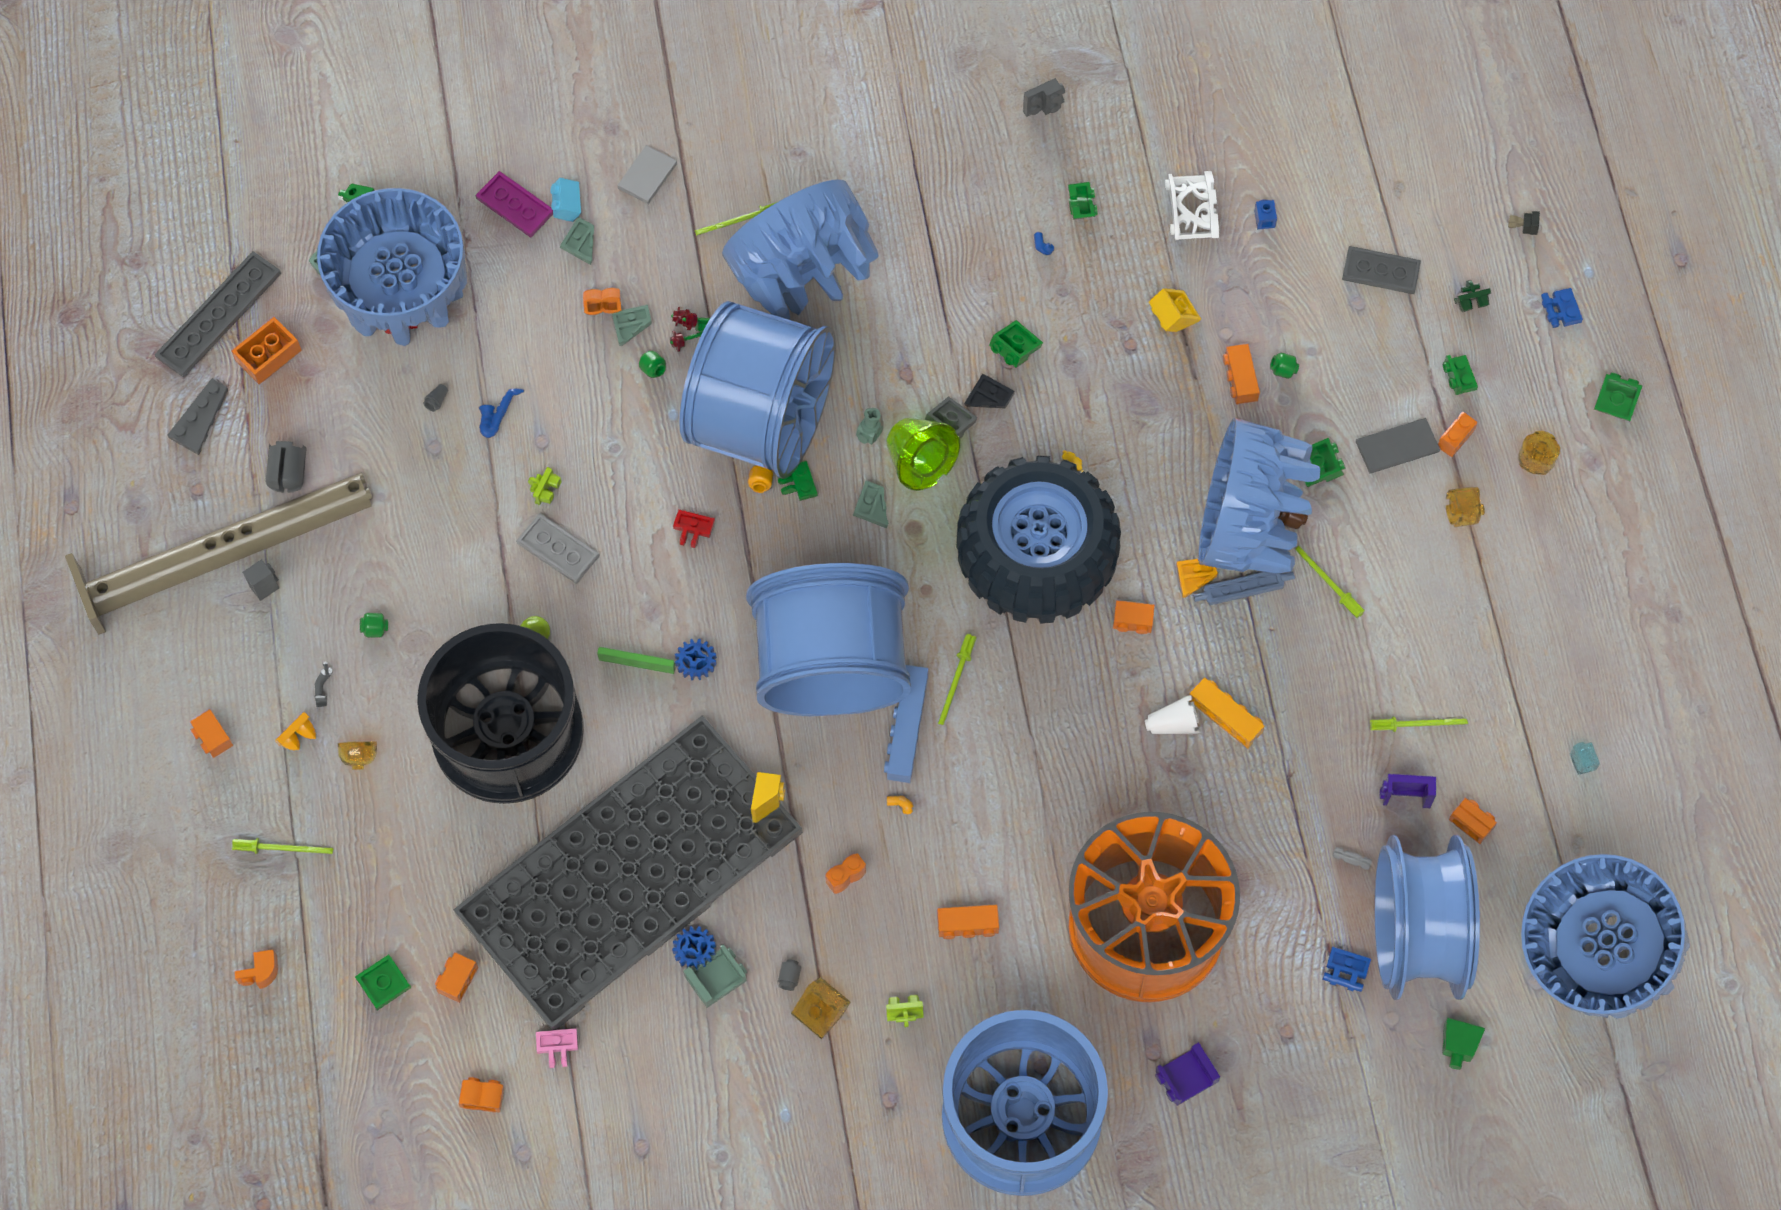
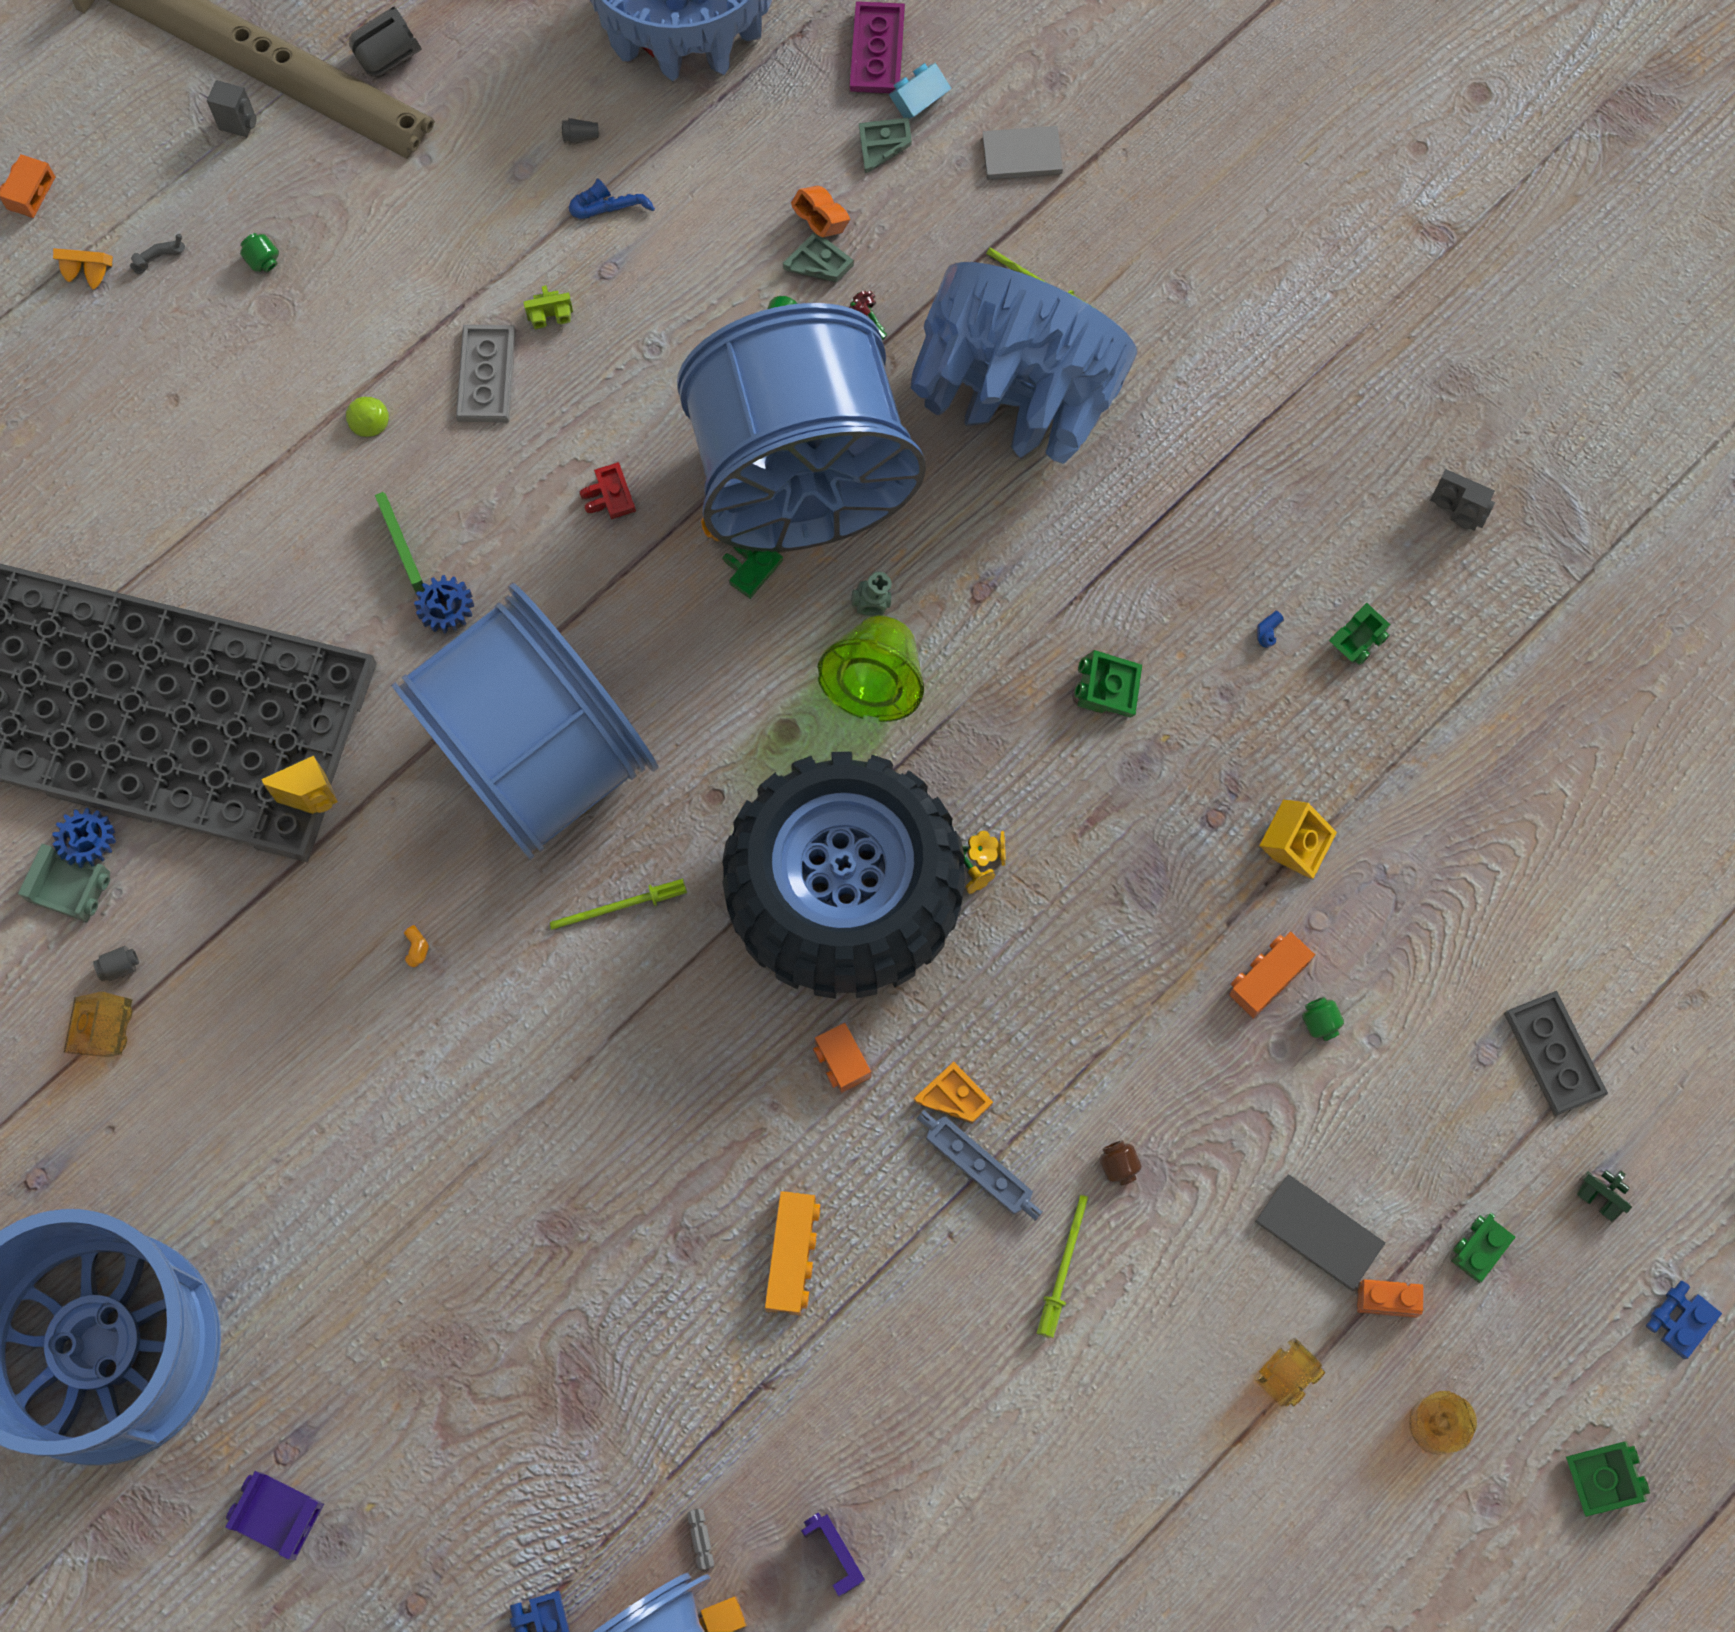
camera: 55 degrees right, 5 degrees up
(357, 753) = (93, 337): clear yellow cylinder -> none
(483, 651) = (237, 508): black wheel -> none
(842, 875) = (281, 943): orange brick -> none
(872, 505) = (777, 664): sand green wing -> none
(904, 1011) = (146, 1114): lime hips -> none
(906, 728) = (520, 887): medium blue brick -> none
(953, 414) = (950, 676): dark grey plate -> none
(968, 921) = (310, 1122): orange brick -> none
(989, 394) = (1020, 699): black wing -> none
(1152, 902) = (421, 1323): orange wheel -> none
(1174, 719) = (738, 1197): white cone -> none
(1183, 186) = (1452, 800): white fence -> none
(1247, 496) = (1065, 1086): medium blue wheel -> none
(1265, 214) = (1518, 860): blue brick -> none
(1325, 456) = (1219, 1149): green plate -> none
(1392, 724) = (918, 1472): lime piece -> none

